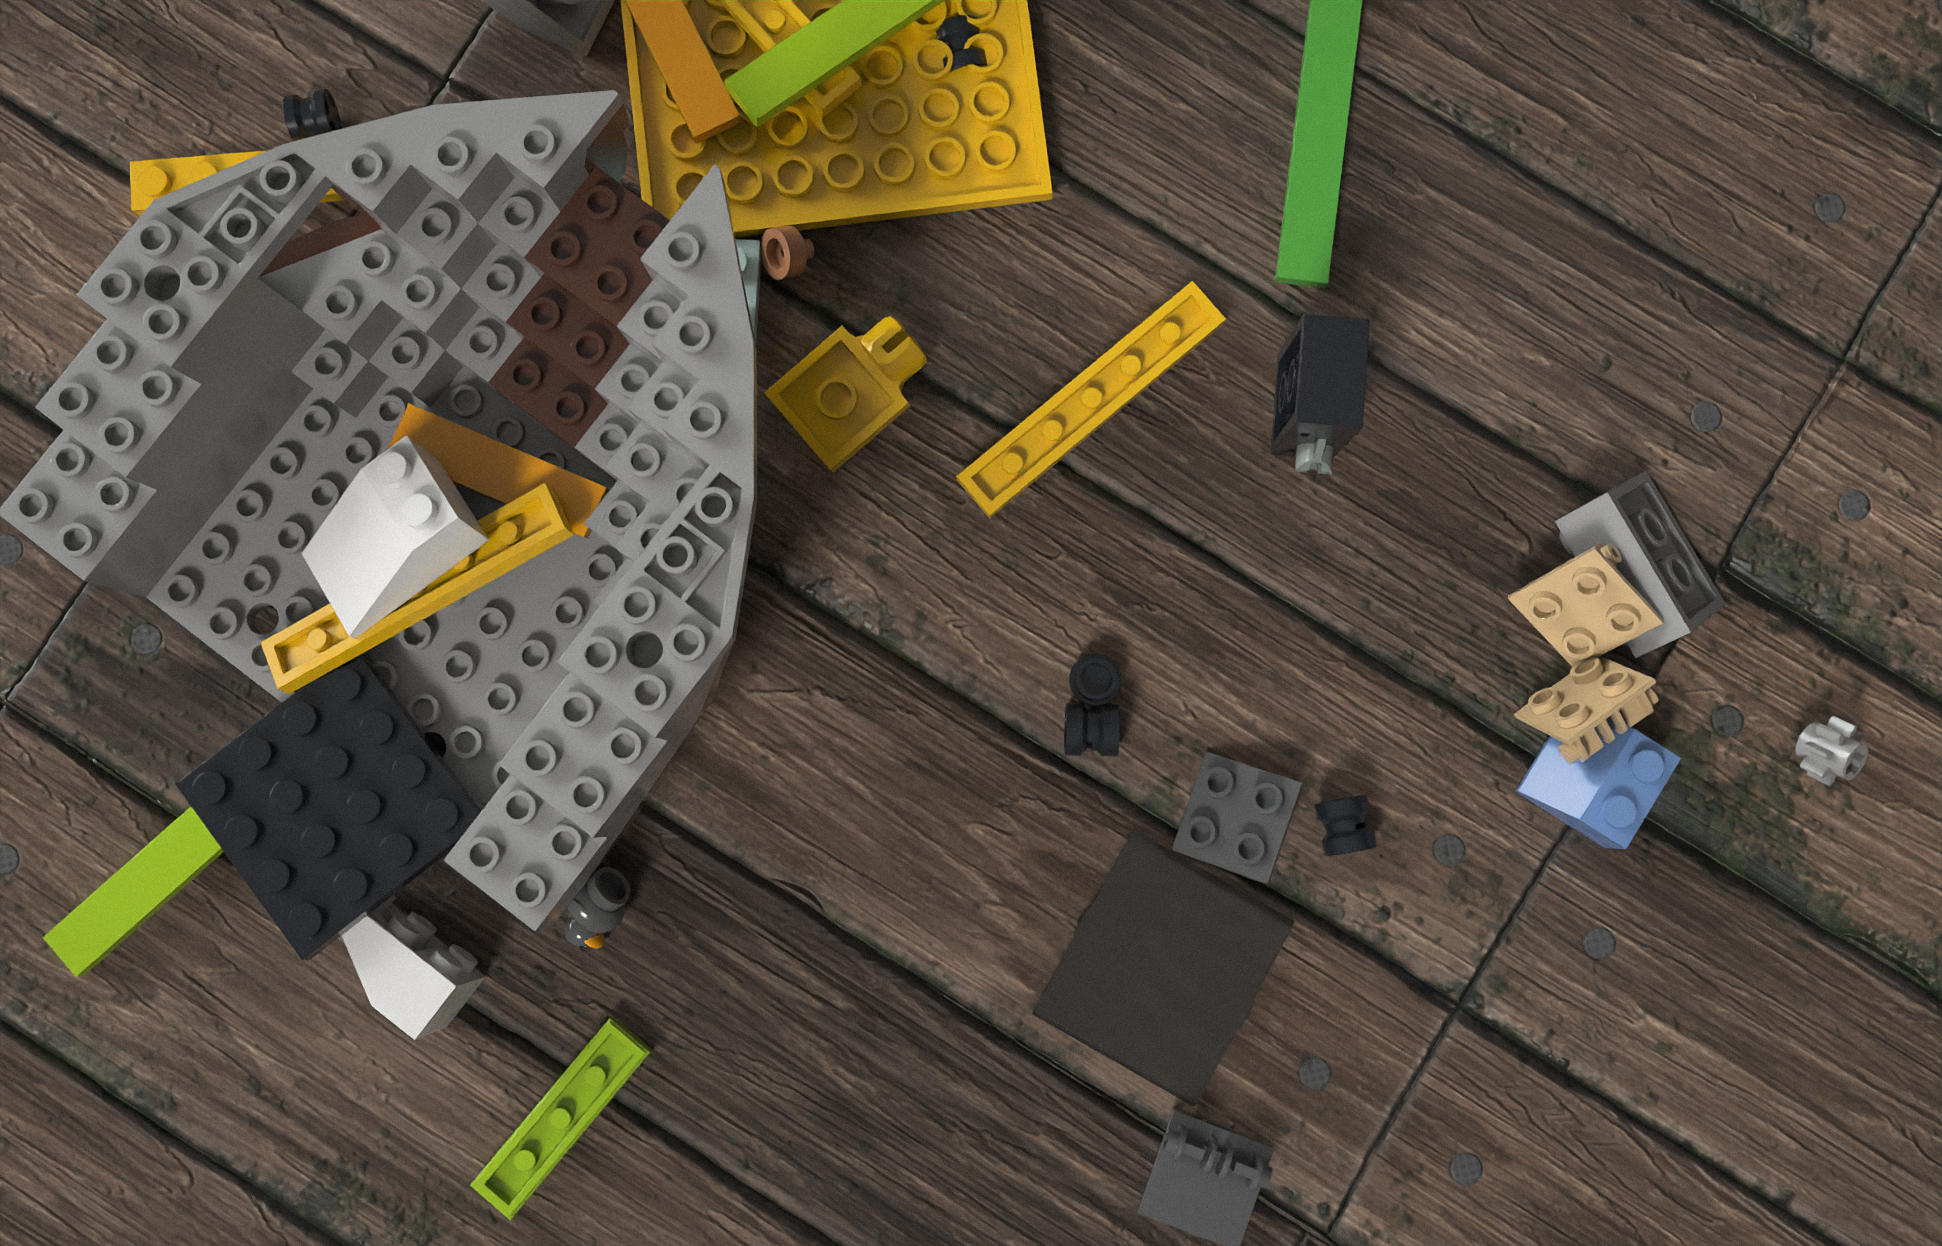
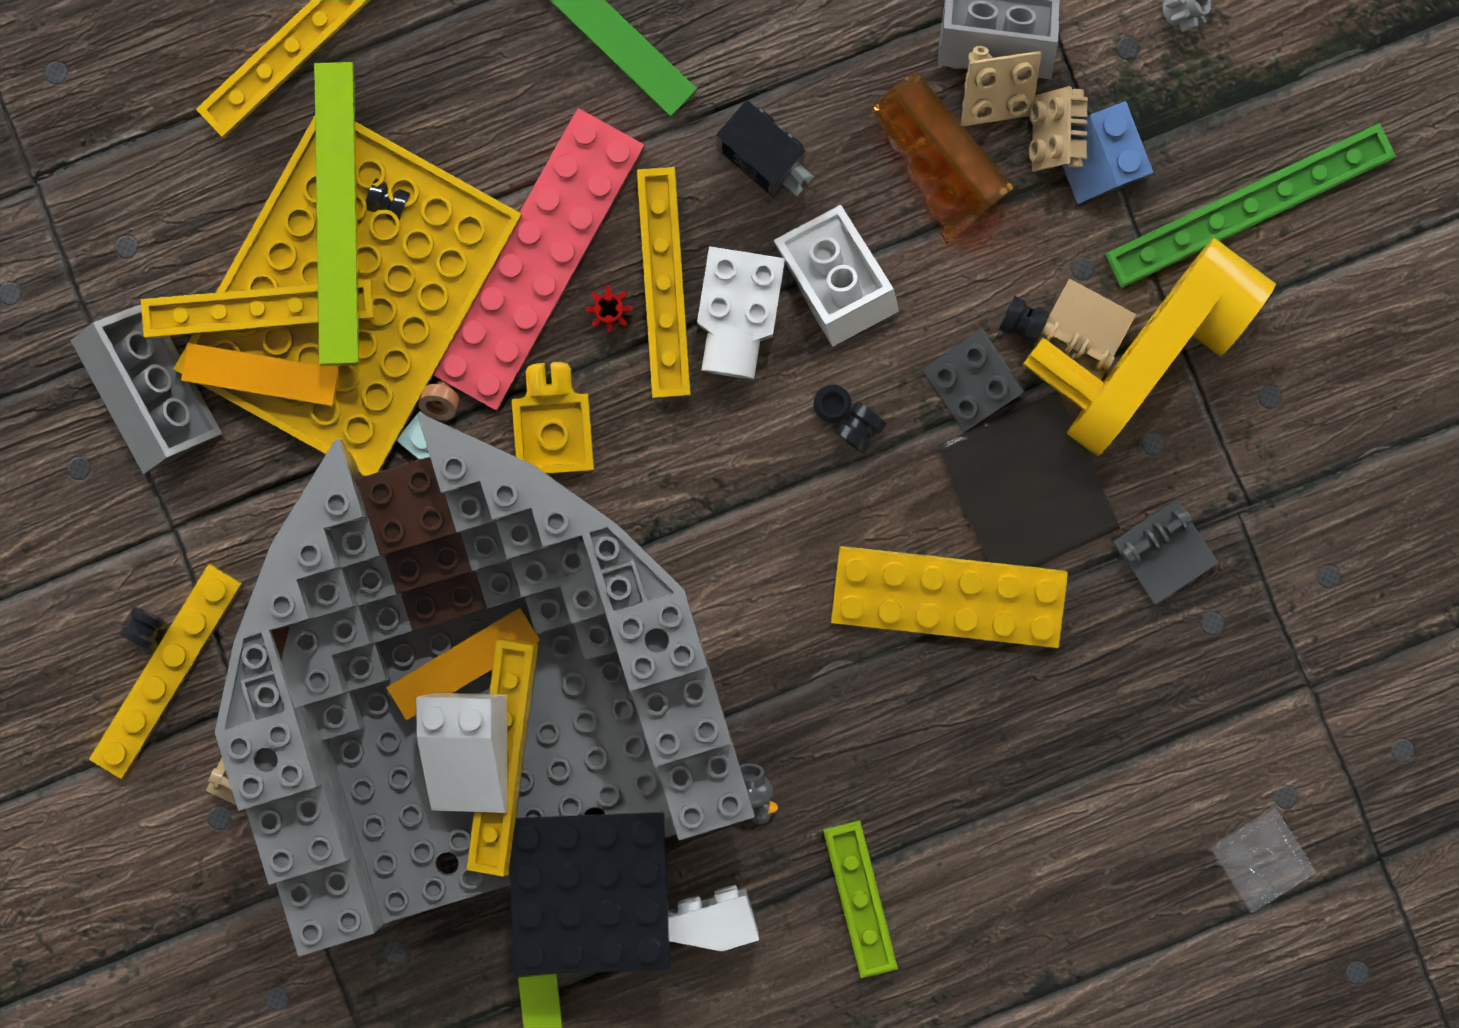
camera: 55 degrees left, 5 degrees up
(976, 970) = (949, 596): none -> yellow plate
(1018, 250) = (539, 258): none -> coral plate
(1032, 363) = (609, 298): none -> red gear
(1123, 498) = (738, 309): none -> white brick
(1240, 583) = (837, 275): none -> white slope
(1385, 902) = (1087, 327): none -> tan hinge
(1457, 598) = (940, 156): none -> clear orange wedge
(1528, 1023) = (1209, 302): none -> yellow beam
(1665, 988) = (1250, 205): none -> bright green tile

